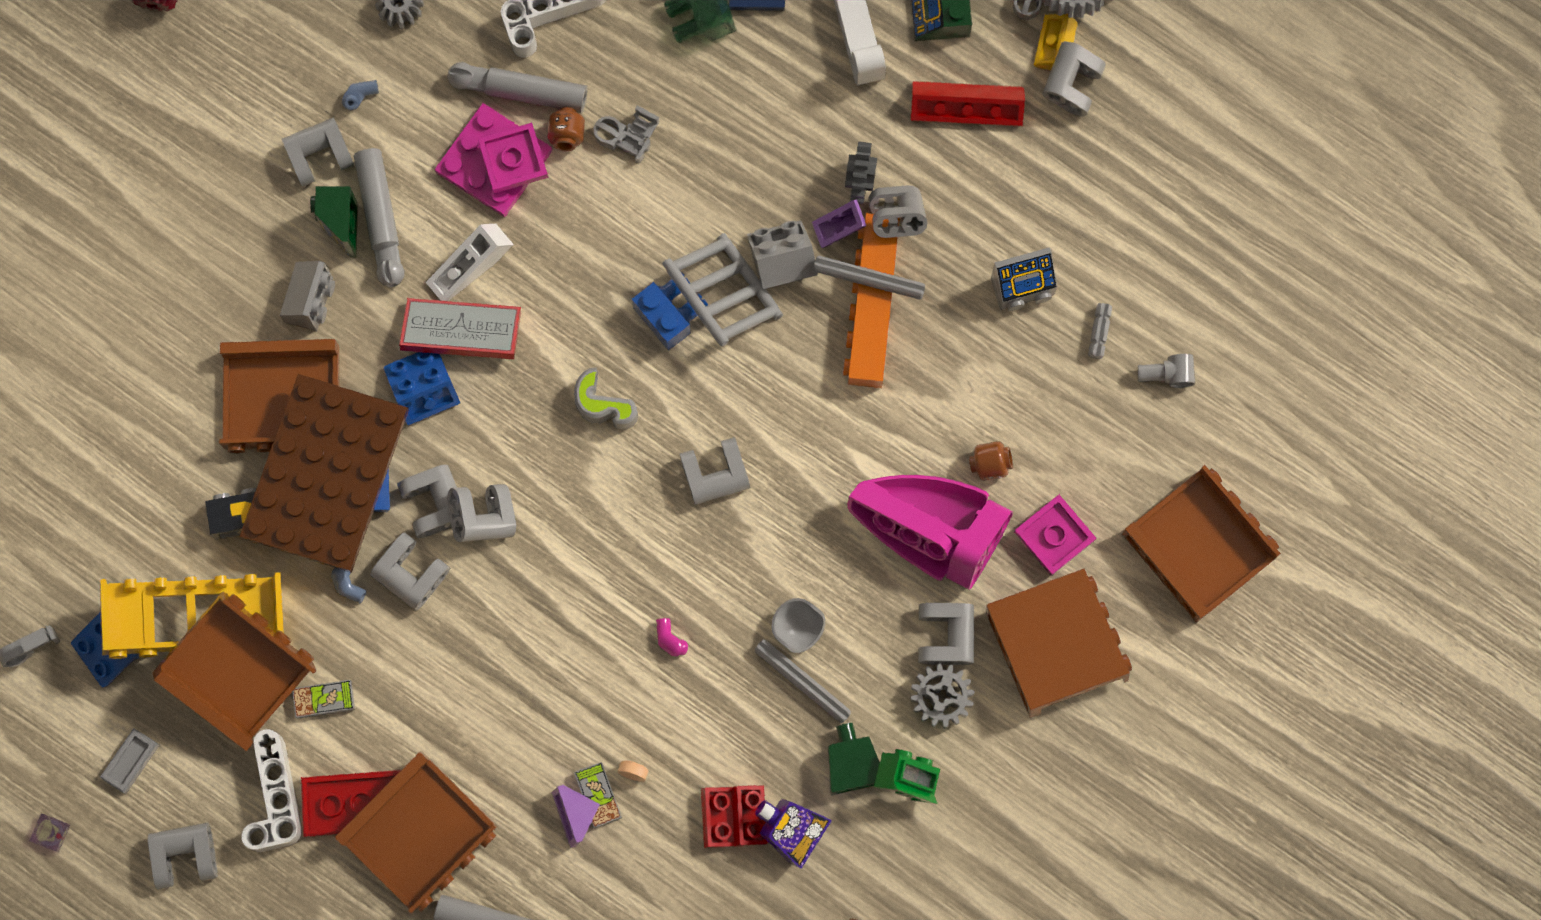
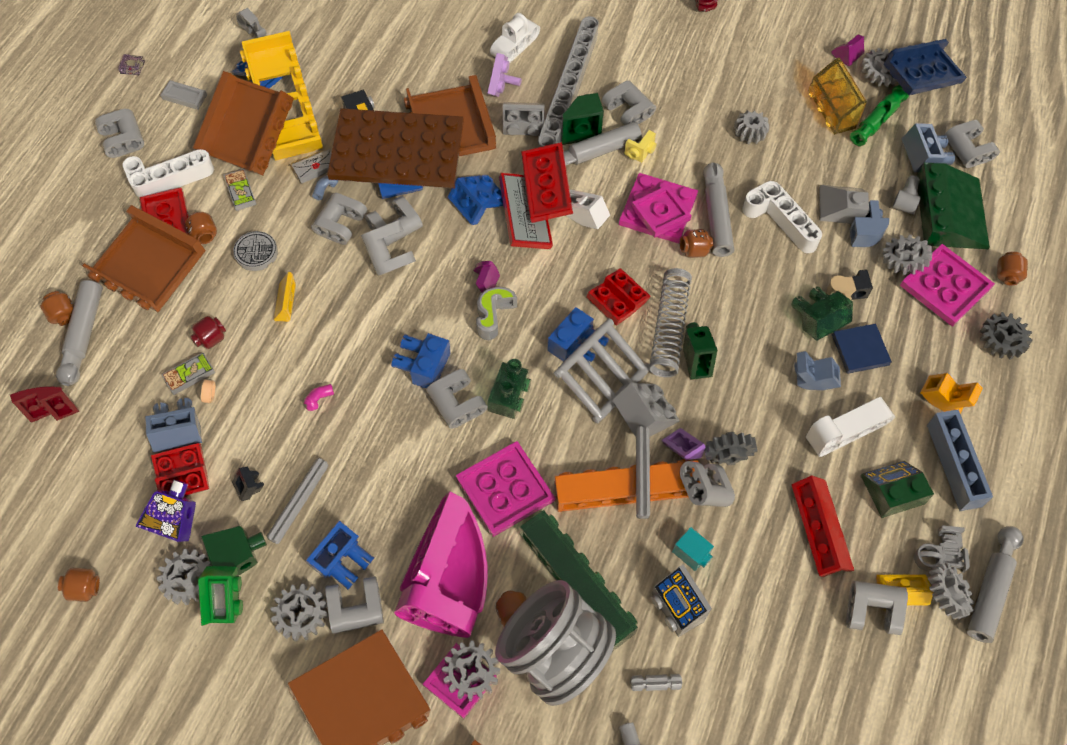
camera: 75 degrees right, 15 degrees down
(159, 276) = (515, 37): none -> white piece
(220, 305) = (498, 77): none -> lavender plate
(256, 213) = (570, 81): none -> light grey beam
(309, 592) = (312, 166): none -> light grey tile
(357, 92) = (678, 118): sand blue arm -> none
(381, 754) = (201, 226): none -> dark orange head
(397, 149) = (640, 150): none -> light yellow bracket
(430, 289) = (546, 182): none -> red tile
(431, 689) = (255, 250): none -> light grey tile
(516, 661) = (285, 298): none -> yellow slope
(547, 762) = (207, 332): none -> dark red head
(551, 397) = (487, 276): none -> magenta tile
(575, 813) = (169, 358): medium lavender slope -> none
(613, 165) = (662, 360): none -> light grey piece
(615, 245) = (618, 296): none -> red slope
(633, 136) = (707, 291): light grey piece -> none
(656, 491) = (430, 362): none -> blue brick
(680, 812) = (173, 428): none -> sand blue brick
(719, 406) = (509, 389): none -> clear green brick
(720, 170) = (699, 342): none -> dark green torso
(769, 738) = (245, 483): none -> black tile
(783, 44) = (817, 374): none -> sand blue brick
(798, 624) = (339, 484): light grey helmet -> none
(843, 439) = (505, 488): none -> dark pink plate
(881, 645) = (329, 553): none -> blue brick
(884, 815) = (174, 576): none -> light grey gear
(965, 249) = (693, 549): none -> teal brick
(972, 383) = (566, 564): none -> clear green brick
(1029, 429) = (556, 643): none -> light grey wheel
(1044, 511) = (460, 666): none -> light grey gear

